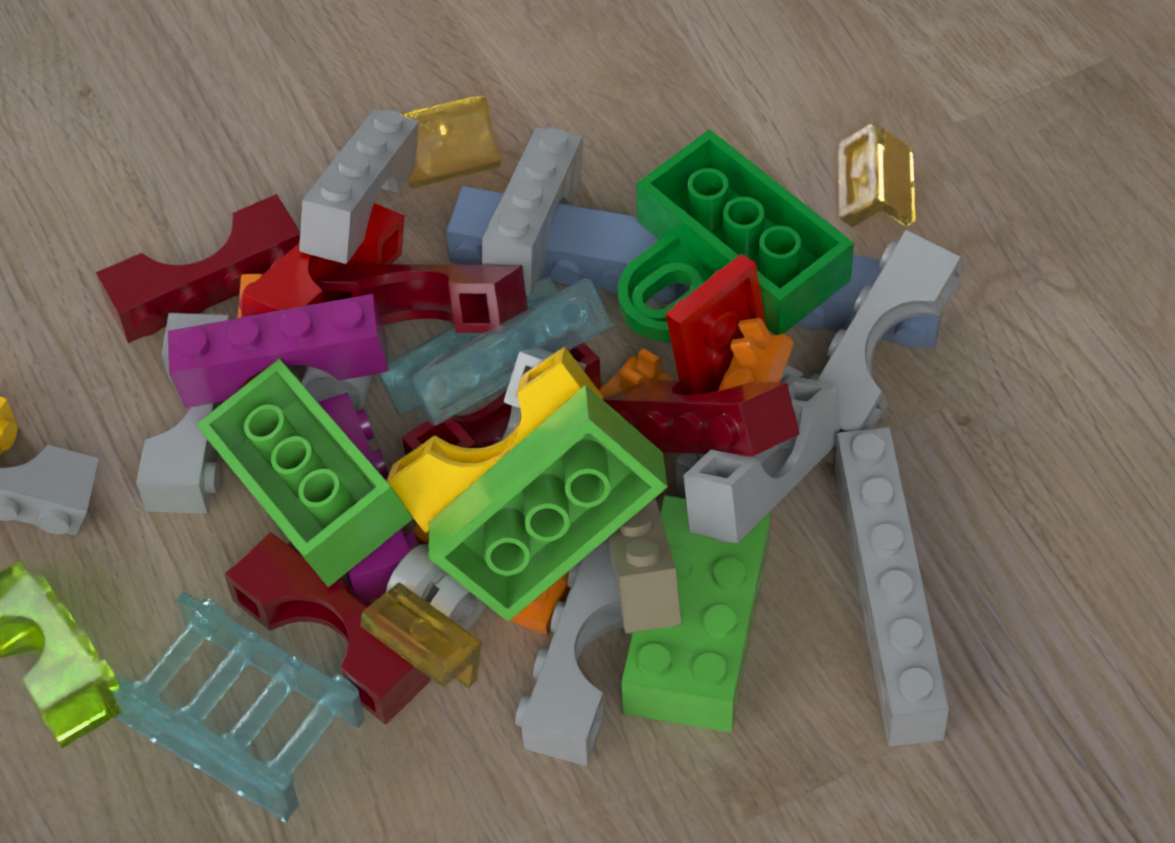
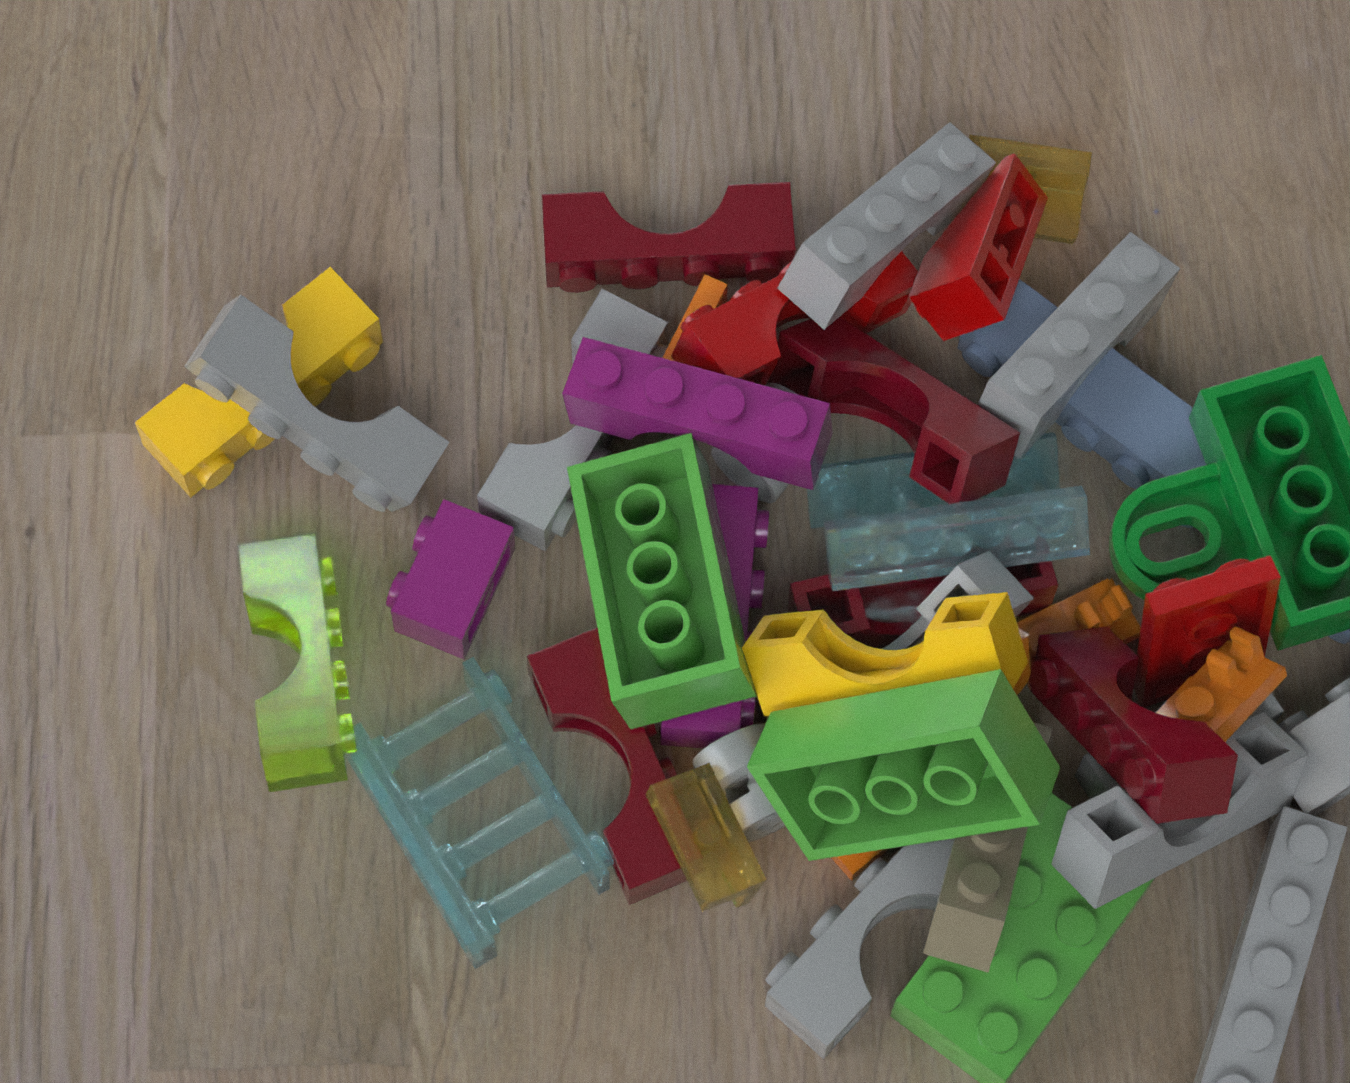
camera: 20 degrees right, 15 degrees up
(141, 554) = (451, 578): none -> magenta brick
(436, 183) = (981, 255): none -> red slope

